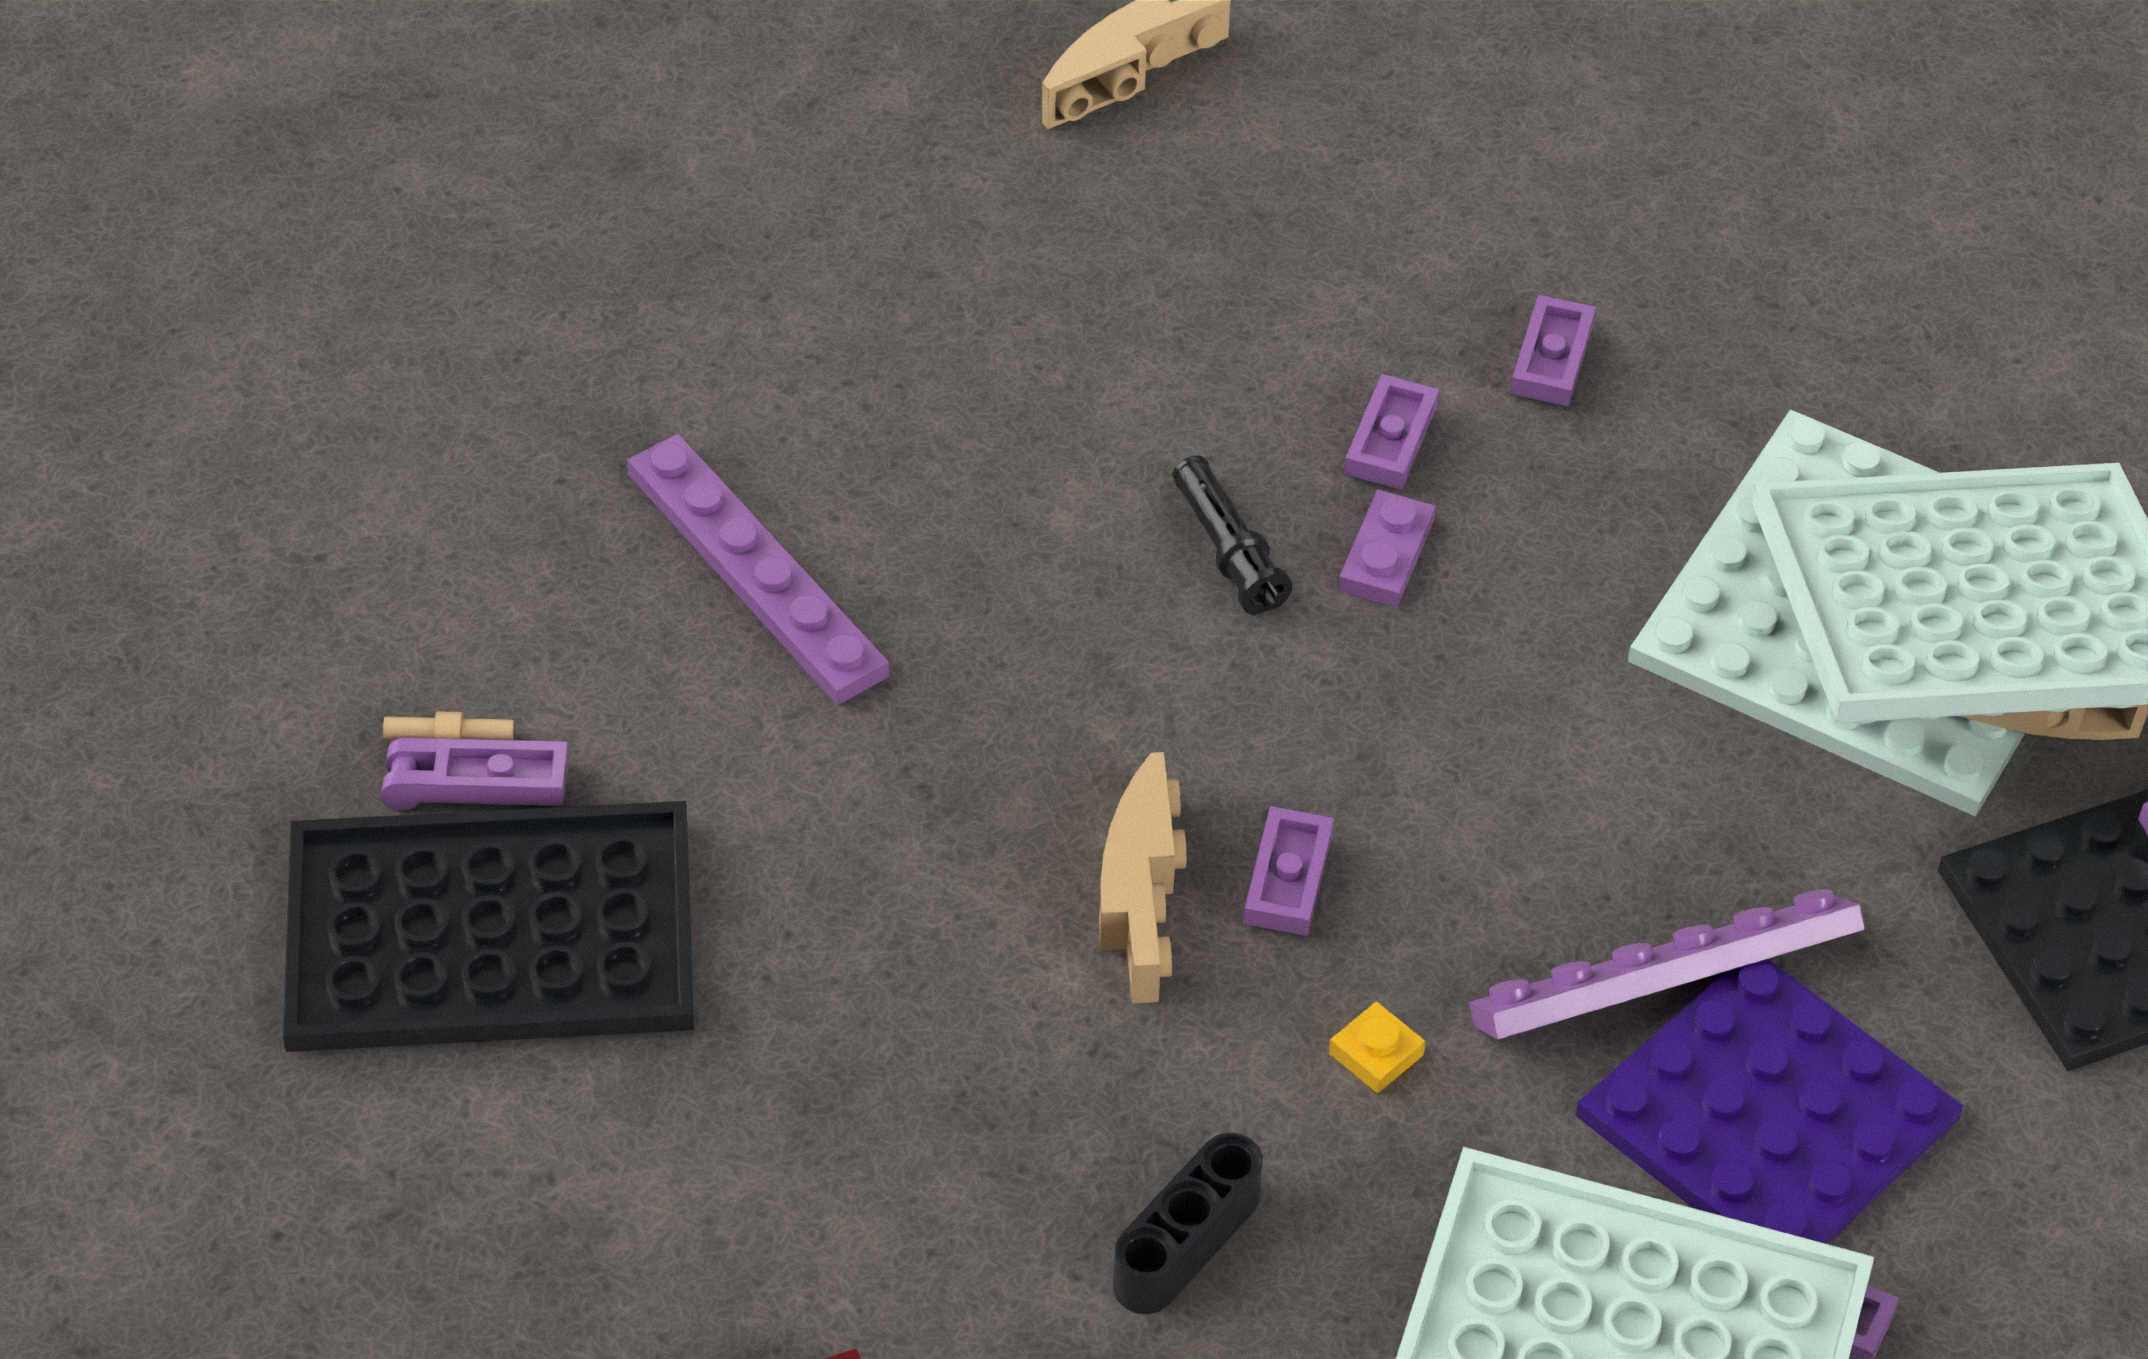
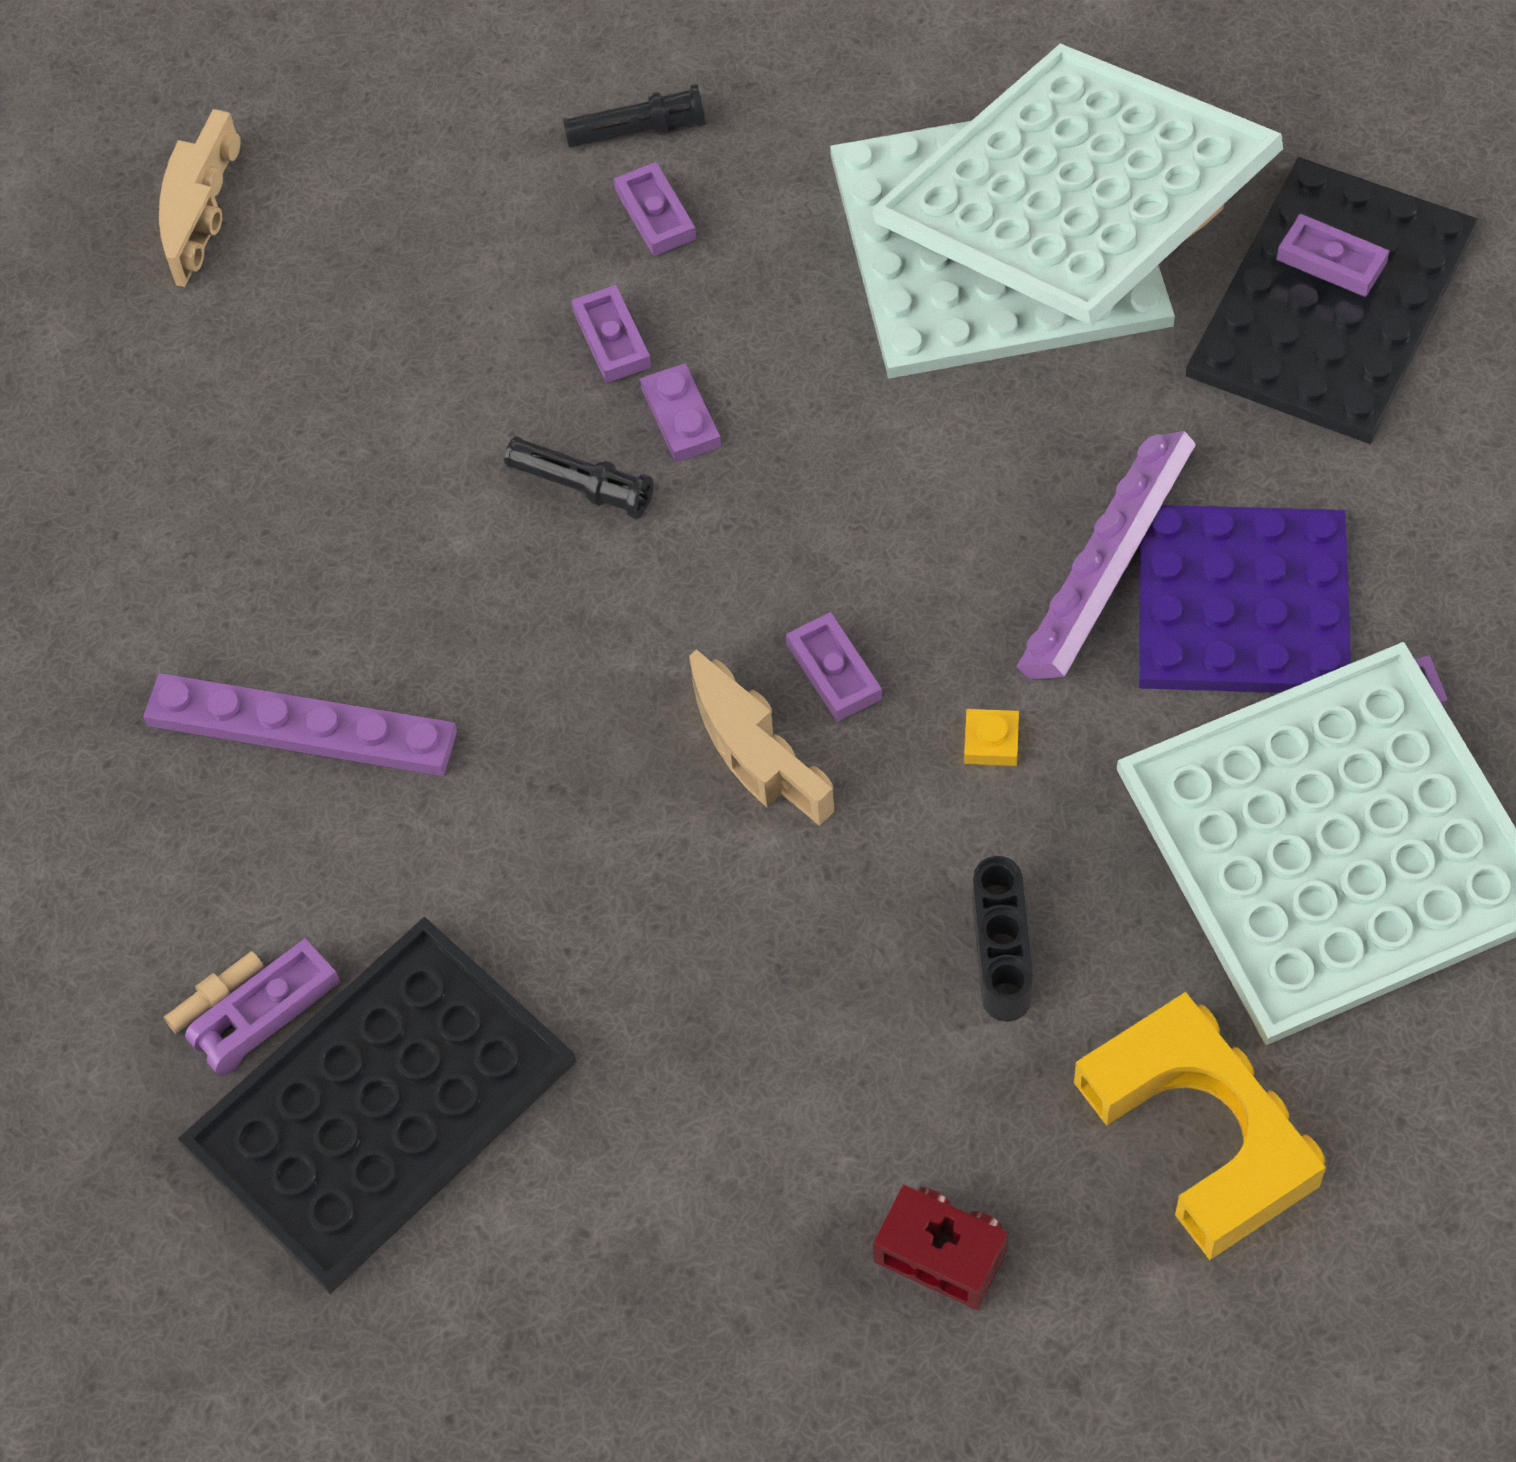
camera: 35 degrees left, 10 degrees up
(1649, 266) = (579, 131): none -> black pin

